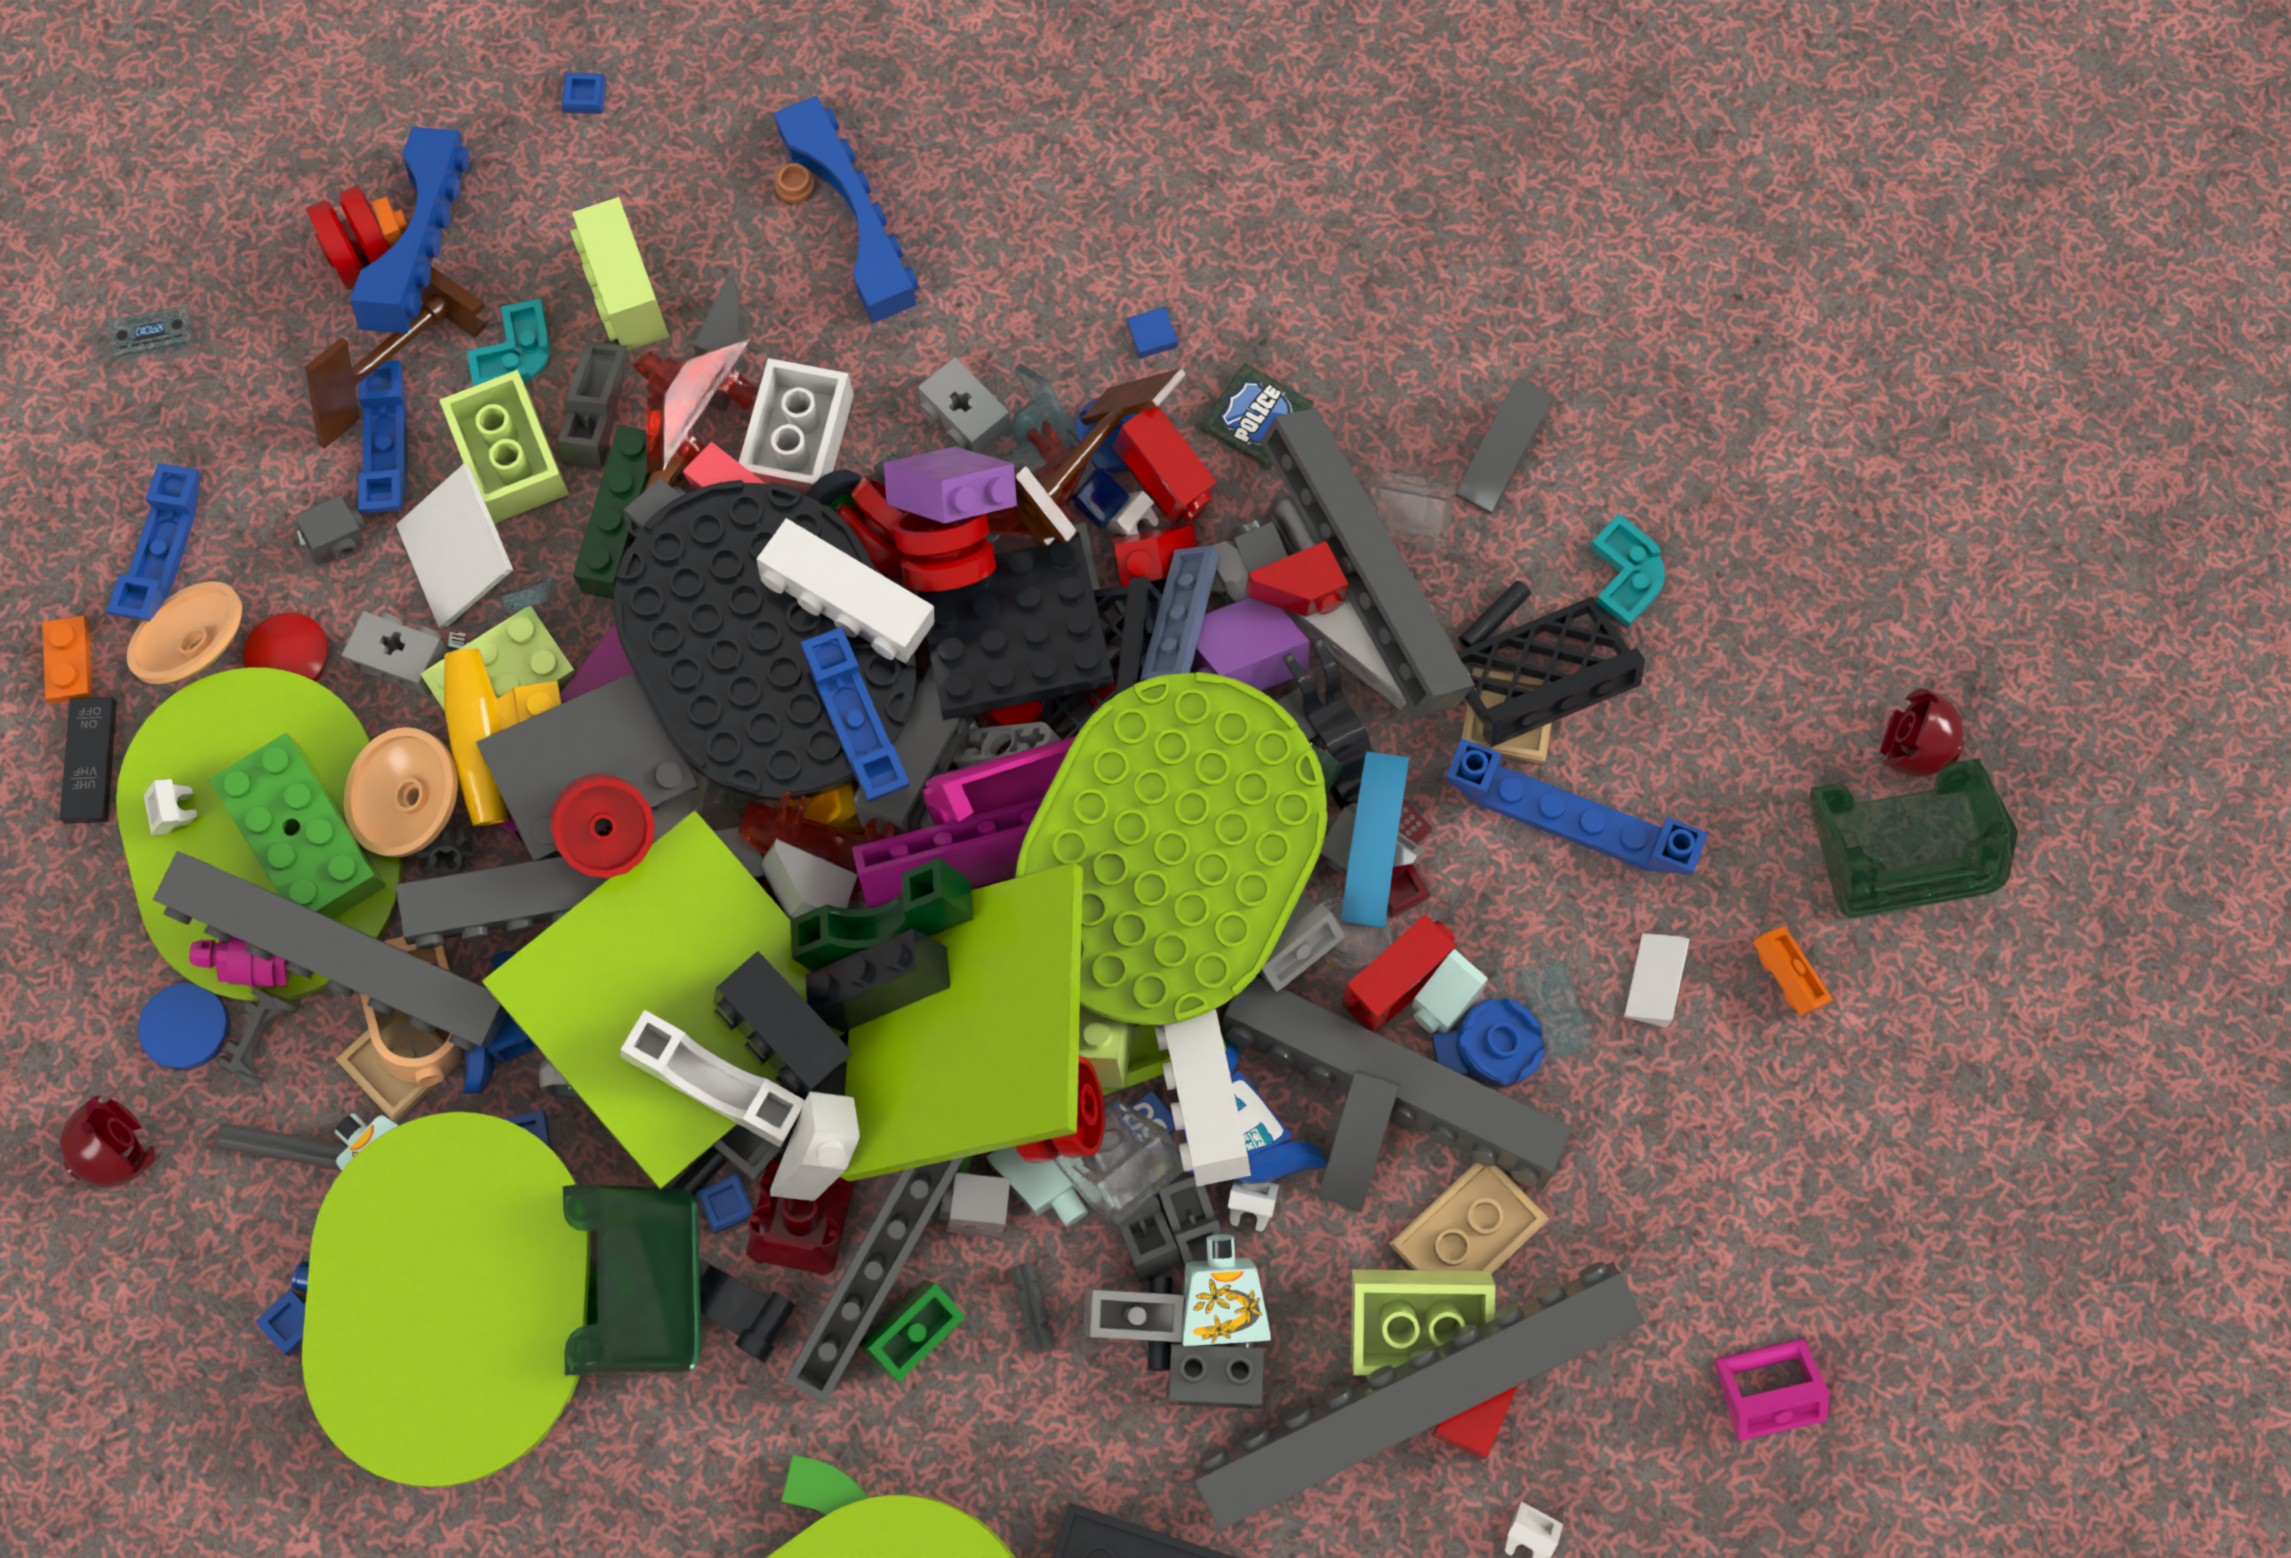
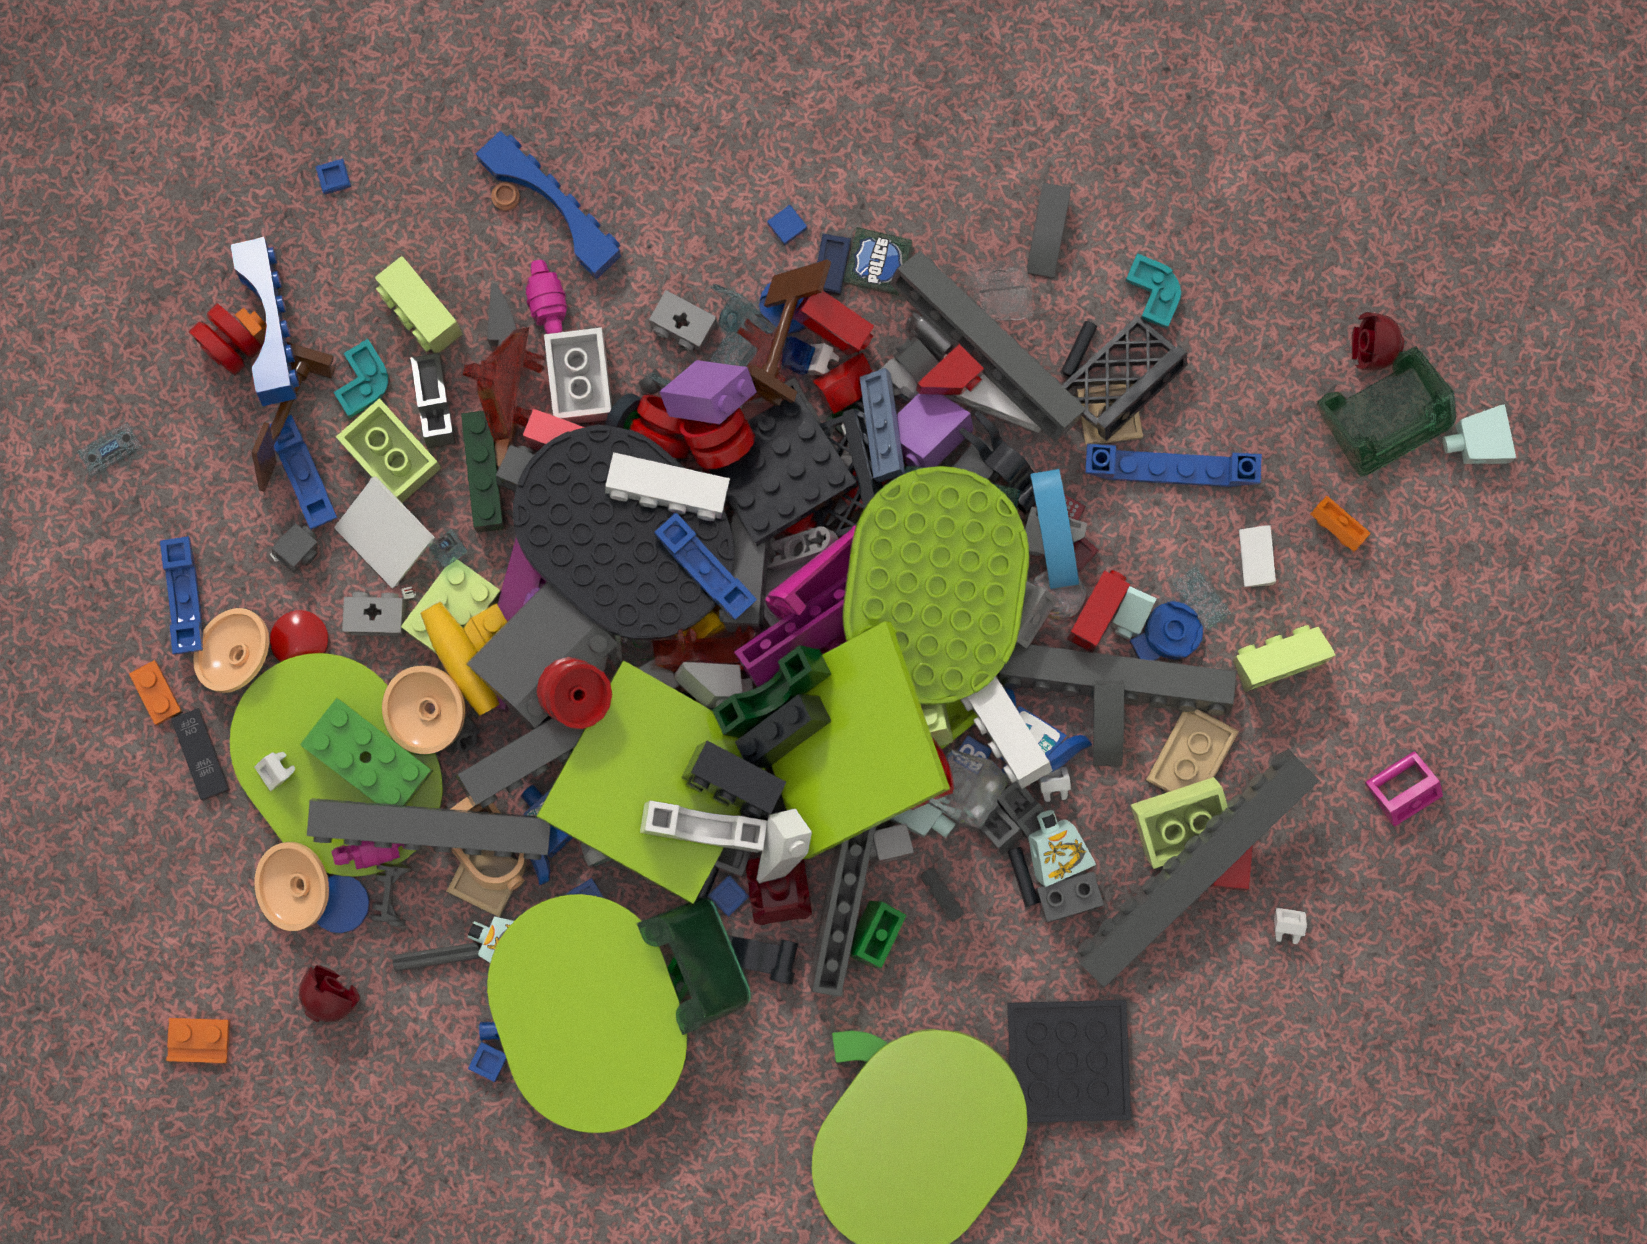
camera: 20 degrees left, 10 degrees up
(123, 976) = (281, 887): none -> light nougat dish
(793, 318) = (546, 297): none -> dark pink piece
(1133, 1315) = (1006, 878): light grey slope -> none
(1195, 397) = (835, 250): none -> dark blue tile
(1648, 1133) = (1282, 657): none -> yellowish green slope
(2040, 919) = (1483, 438): none -> light aqua torso

